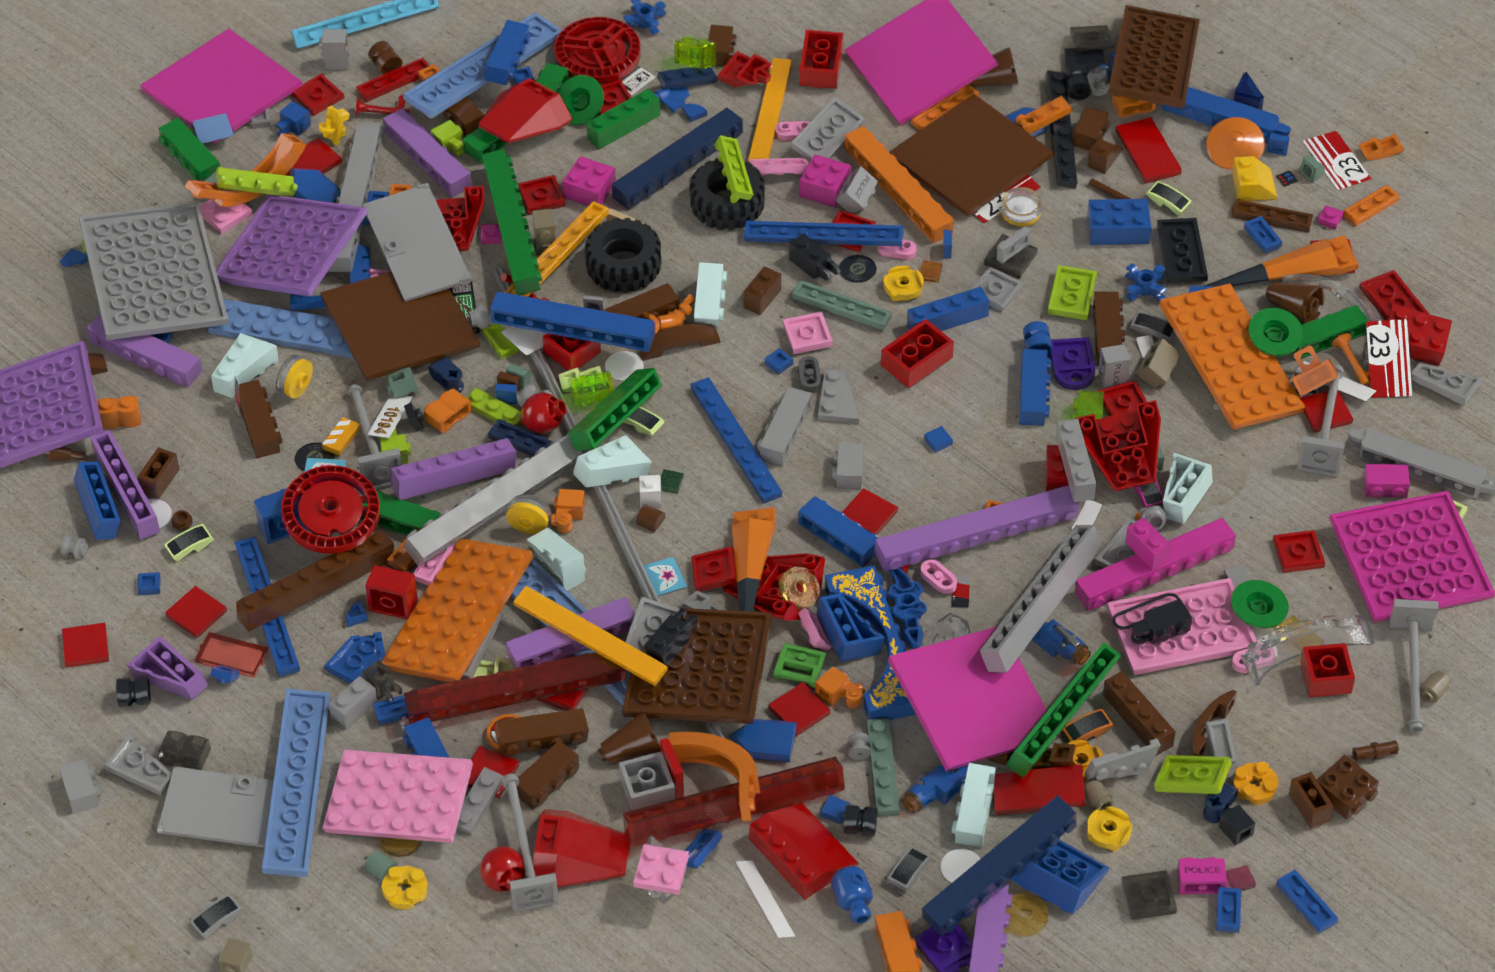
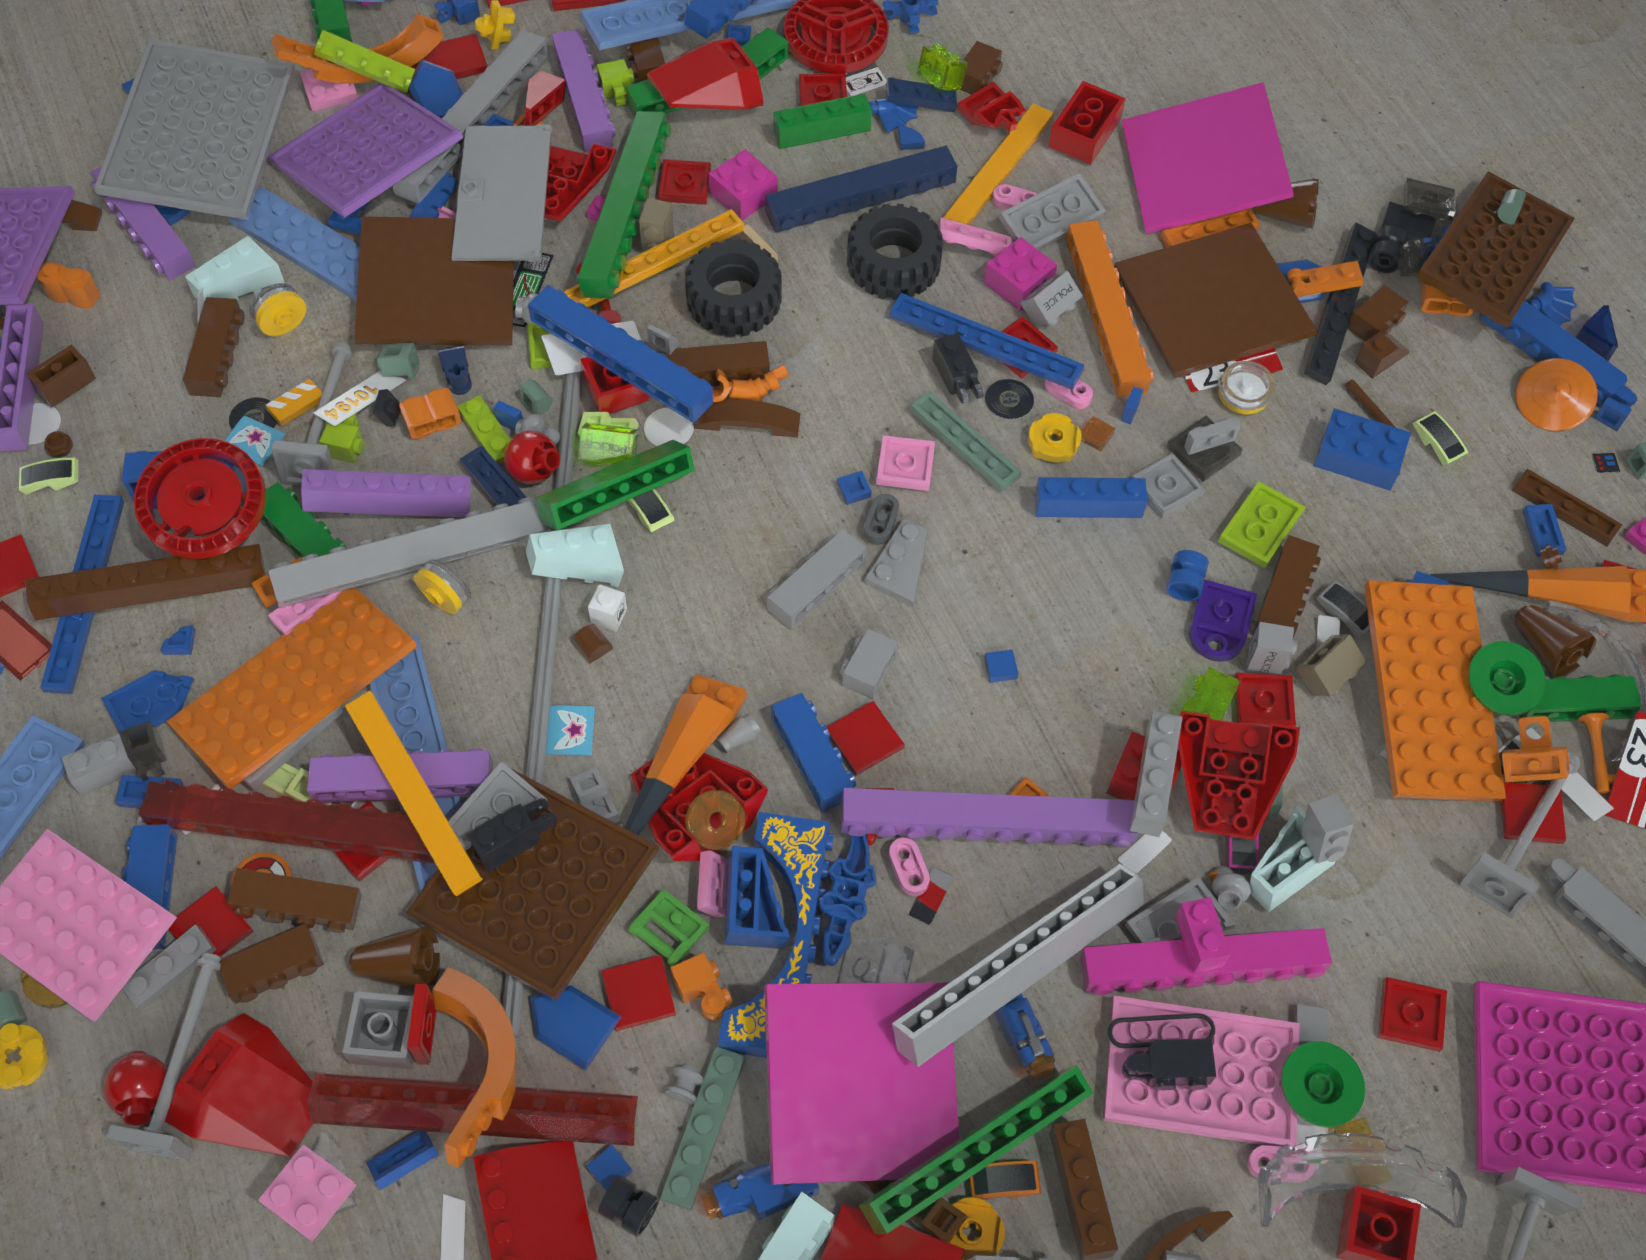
camera: 20 degrees right, 10 degrees up
(362, 107) = (540, 14): red piece -> none
(391, 592) = (224, 630): red brick -> none
(400, 166) = (543, 96): none -> red slope
(505, 378) = (518, 400): reddish brown tile -> none
(558, 558) = (448, 659): light aqua wedge -> none
(569, 506) = (499, 590): orange brick -> none
(582, 98) = (784, 81): green hat -> none
(671, 481) = (643, 602): clear green tile -> none
(710, 294) = (809, 373): light aqua wedge -> none
(714, 569) = (630, 746): red tile -> none
(734, 168) = (909, 224): lime hinge -> none
(736, 440) = (750, 577): blue plate -> none
(762, 290) = (876, 388): reddish brown brick -> none
(784, 536) = (739, 733): none -> light grey cone
(917, 353) = (1025, 539): red brick -> none
(1033, 387) = (1154, 638): blue brick -> none
(1145, 282) = (1366, 536): blue pin -> none
(1148, 150) = (1440, 366): red tile -> none
(1152, 23) = (1511, 205): none -> sand green brick
(1182, 250) = (1428, 516): black plate -> none
(1199, 453) = (1327, 829): none -> light grey brick
(1209, 81) = (1554, 302): none -> blue arm
(1253, 179) = (1560, 451): yellow slope -> none
(1274, 249) = (1550, 557): none -> reddish brown plate
(1386, 480) = (1578, 954): dark pink brick -> none

